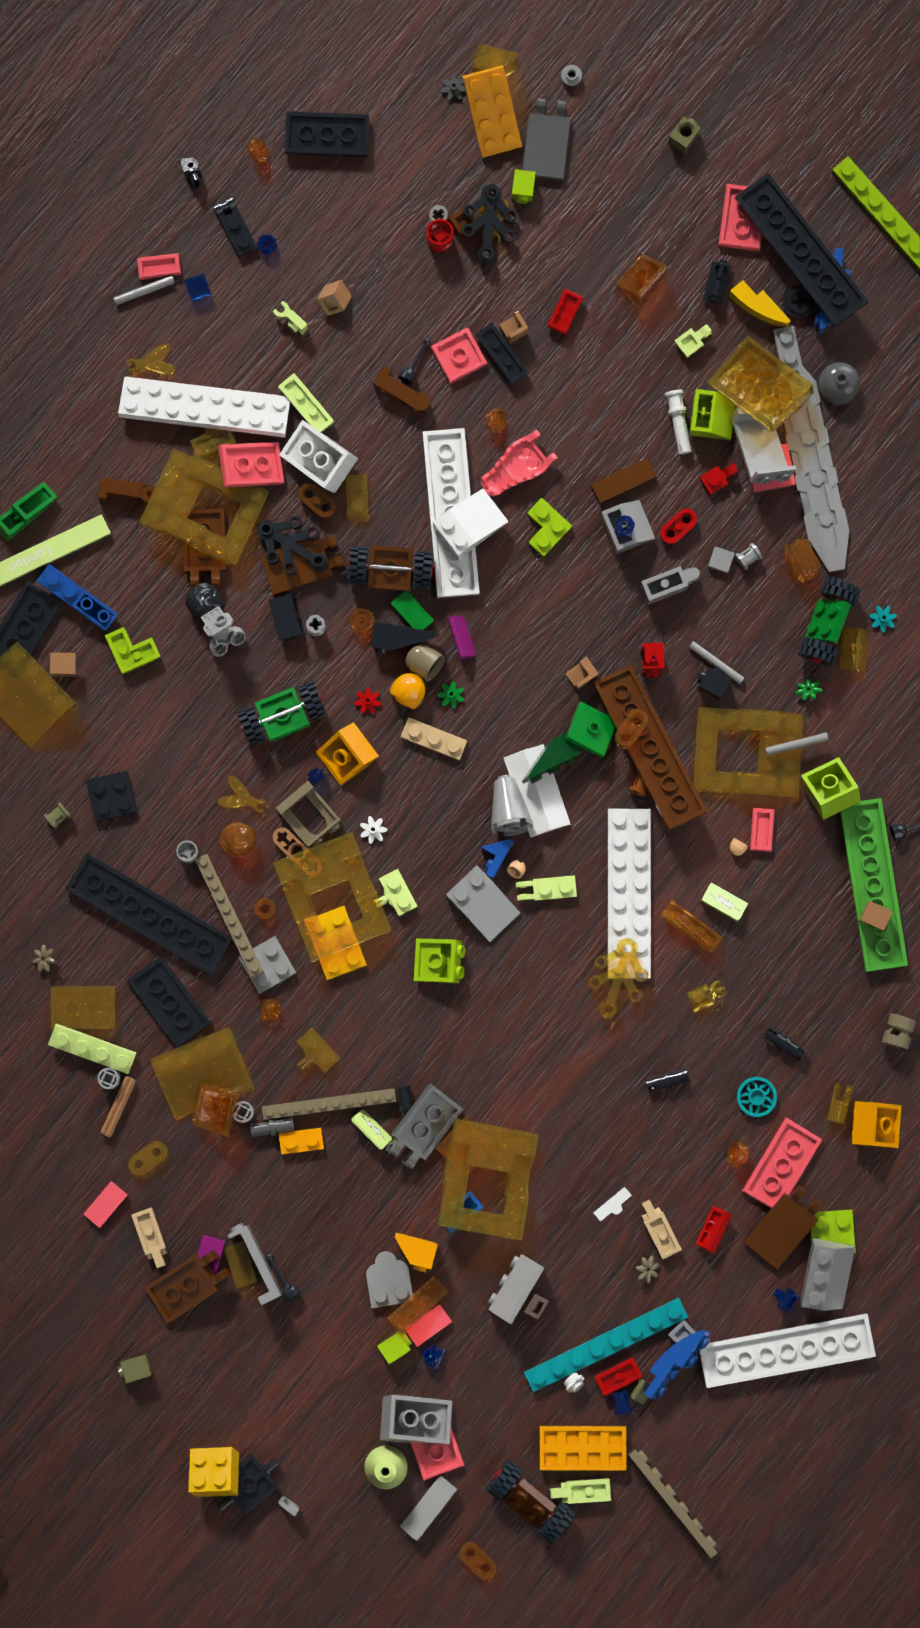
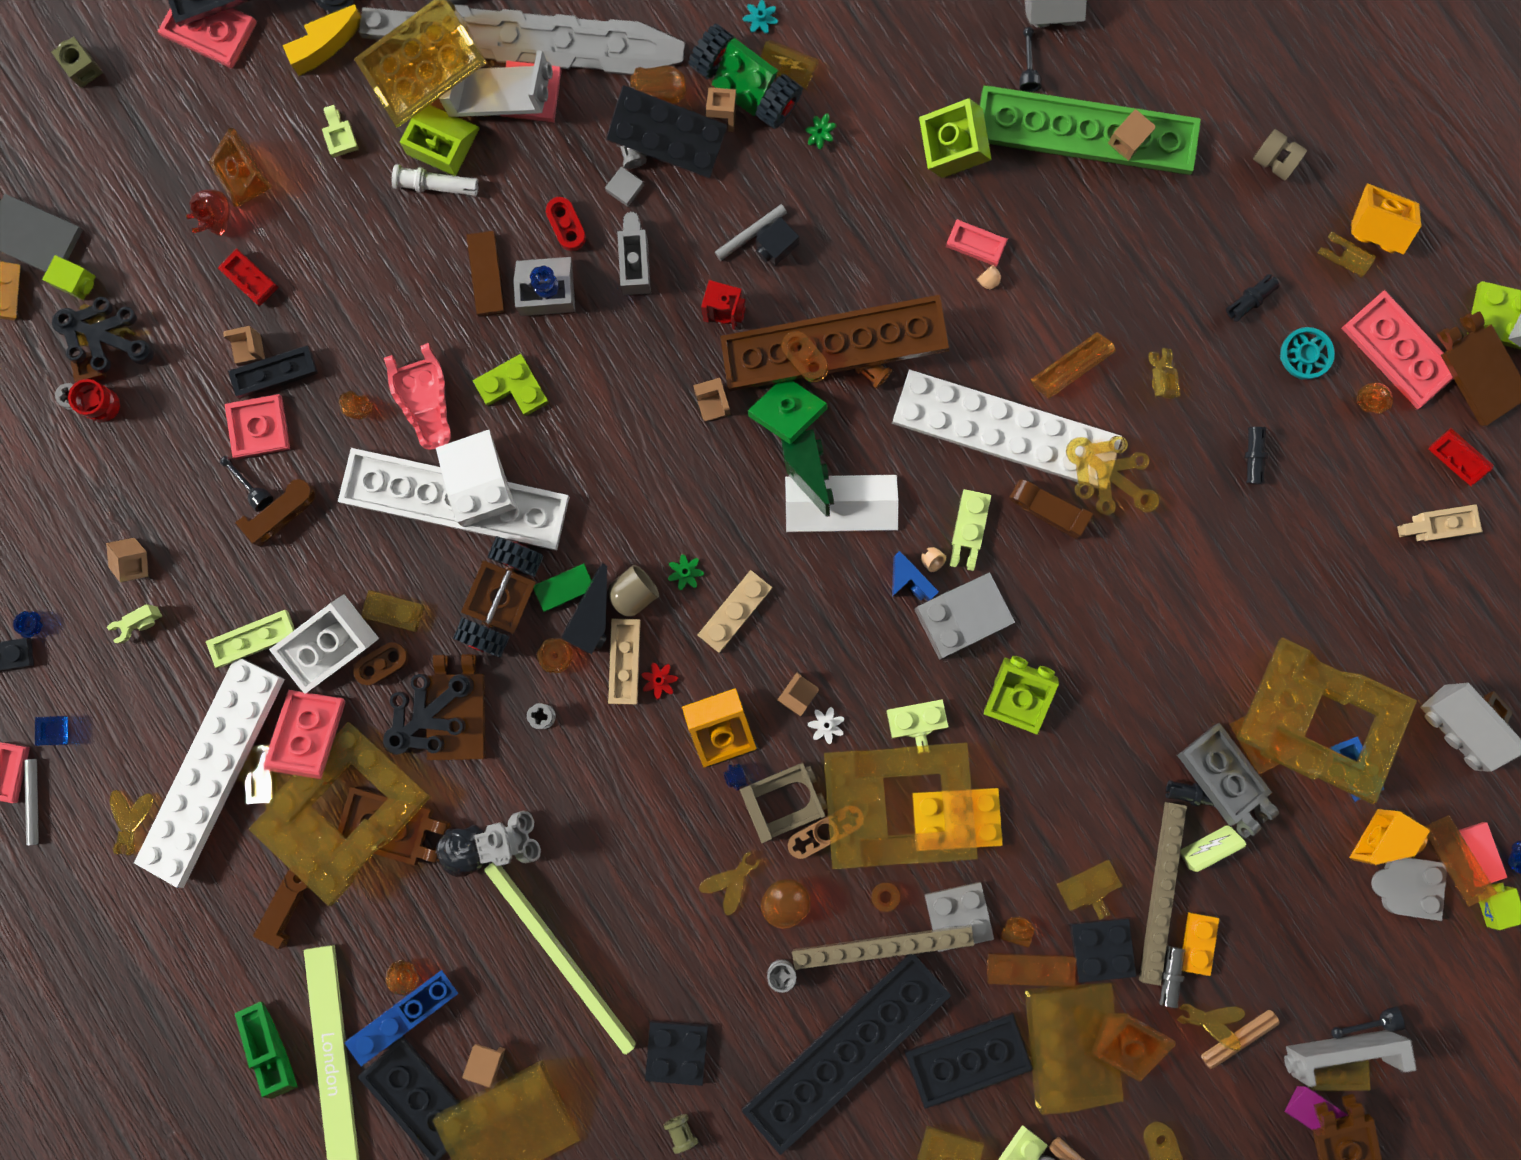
camera: 65 degrees left, 0 degrees up
(103, 588) = (401, 978): none -> clear orange plate
(128, 655) = (501, 972): lime plate -> none
(152, 693) = (561, 957): none -> yellowish green tile
(242, 1188) = (1246, 1036): none -> medium nougat axle
(243, 1112) = (1139, 1004): light grey wheel -> none
(245, 1027) = (1031, 969): none -> clear orange plate
(249, 1166) = (1215, 1022): none -> clear yellow piece
(275, 1073) = (1103, 950): none -> black plate
(282, 714) = (642, 796): plate -> none
(287, 618) = (519, 750): black hinge -> none
(373, 671) = (624, 661): none -> tan plate
(388, 802) = (798, 694): none -> medium nougat panel
(408, 690) = (663, 623): light orange hair -> none
(461, 637) = (616, 536): magenta slope -> none
(509, 808) = (853, 543): light grey cone -> none
(580, 941) = (1050, 508): none -> reddish brown leg
(605, 268) = (210, 210): none -> clear red piece
(613, 1205) = (1391, 572): white sticker -> none
(647, 1269) = (1487, 555): dark tan plant -> none
(716, 479) = (522, 160): red plate -> none
(717, 282) = (276, 81): black hinge -> none
(724, 902) = (1053, 316): yellowish green slope -> none
(767, 577) = (665, 132): none -> black plate
(776, 774) = (887, 194): clear yellow piece -> none
(796, 744) = (885, 164): light grey bar -> none
(801, 611) = (722, 104): none -> medium nougat panel

